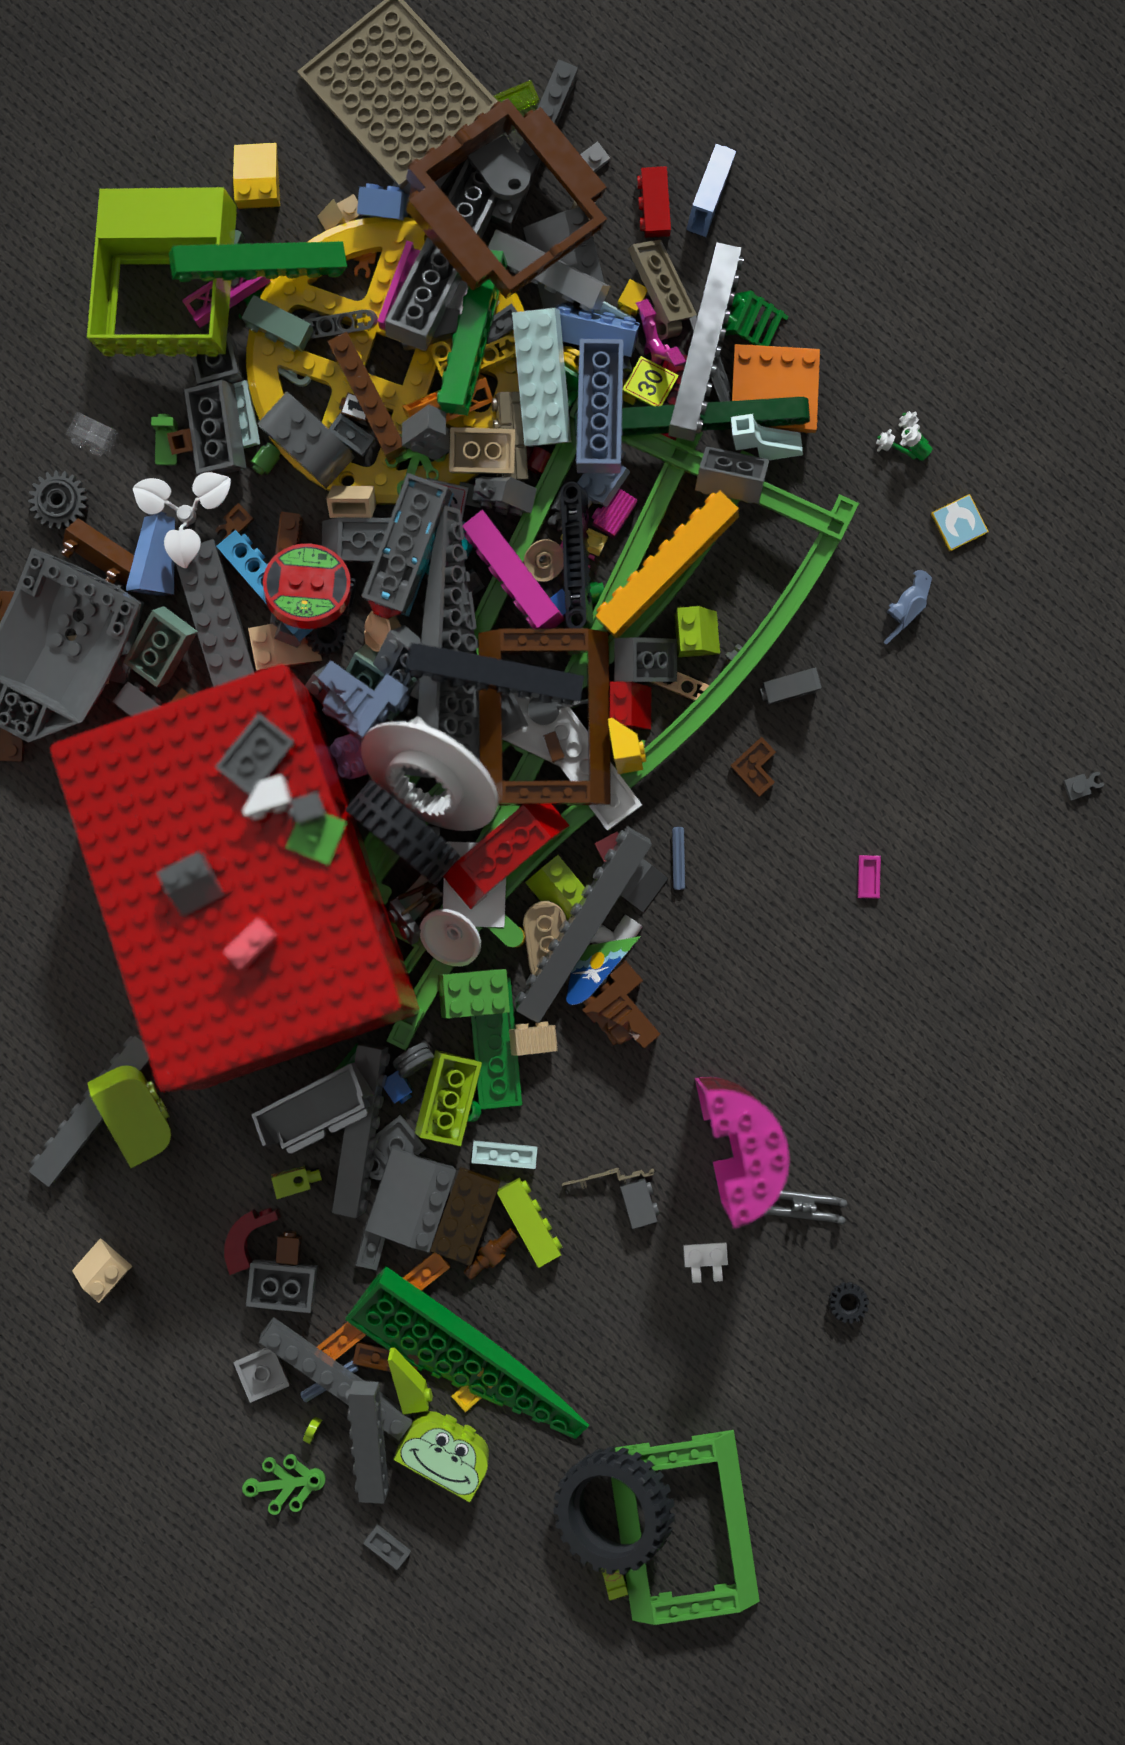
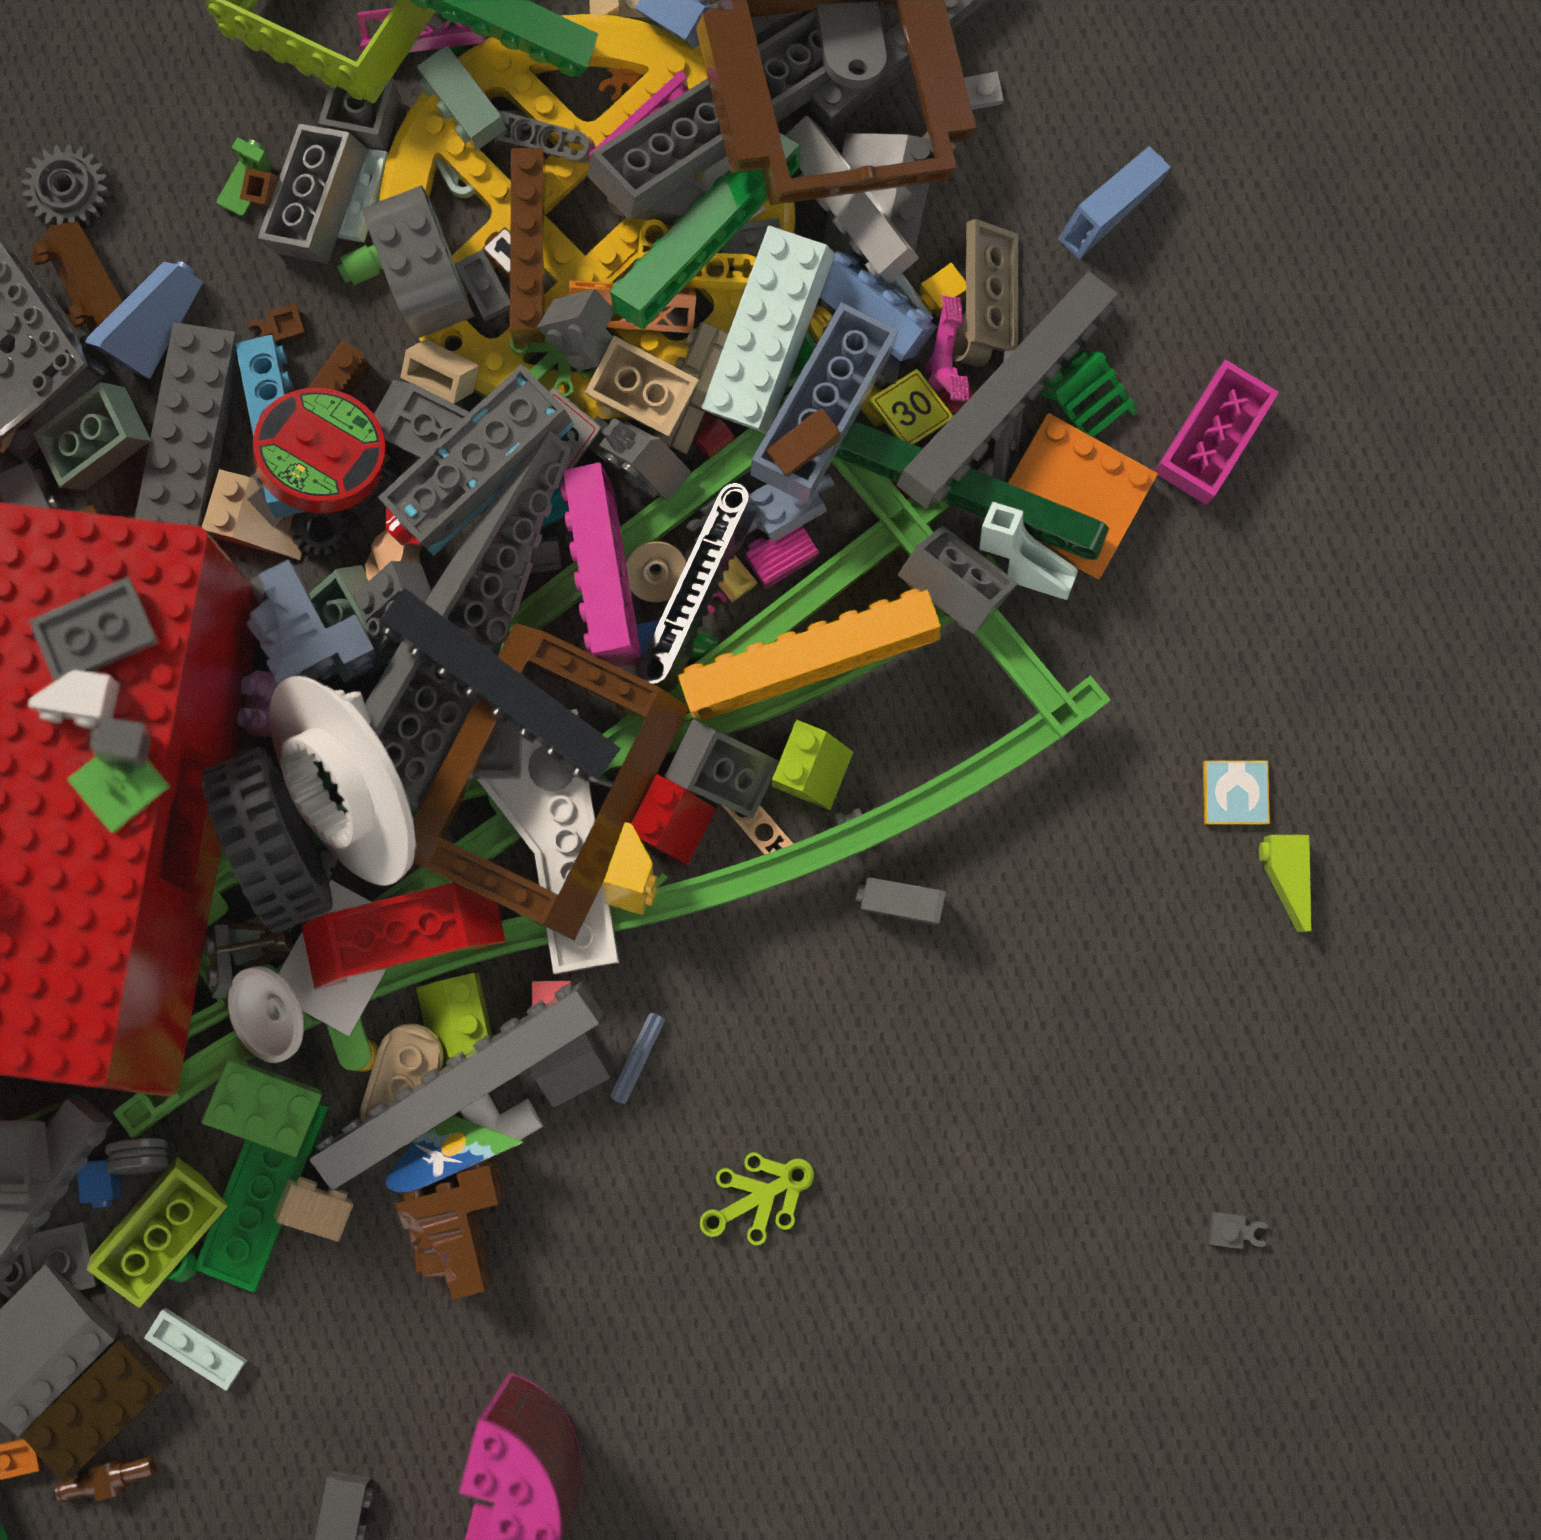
camera: 20 degrees right, 5 degrees down
(92, 434) = (155, 125): clear brick -> none
(152, 496) = (185, 236): white plant -> none
(529, 1222) = (180, 1462): lime brick -> none
(554, 746) = (538, 824): reddish brown piece -> none
(603, 436) = (804, 442): none -> reddish brown slope
(616, 1170) = (336, 1449): dark tan piece -> none
(654, 202) = (1032, 182): red brick -> none
(749, 766) = (793, 982): reddish brown plate -> none
(792, 902) = (761, 1195): none -> lime plant
(843, 305) = (1216, 432): none -> dark pink brick
(869, 876) = (883, 1212): dark pink tile -> none
(910, 436) = (1224, 647): white plant -> none
(910, 602) = (1118, 867): sand blue animal -> none
(1014, 555) = (1288, 867): none -> lime slope

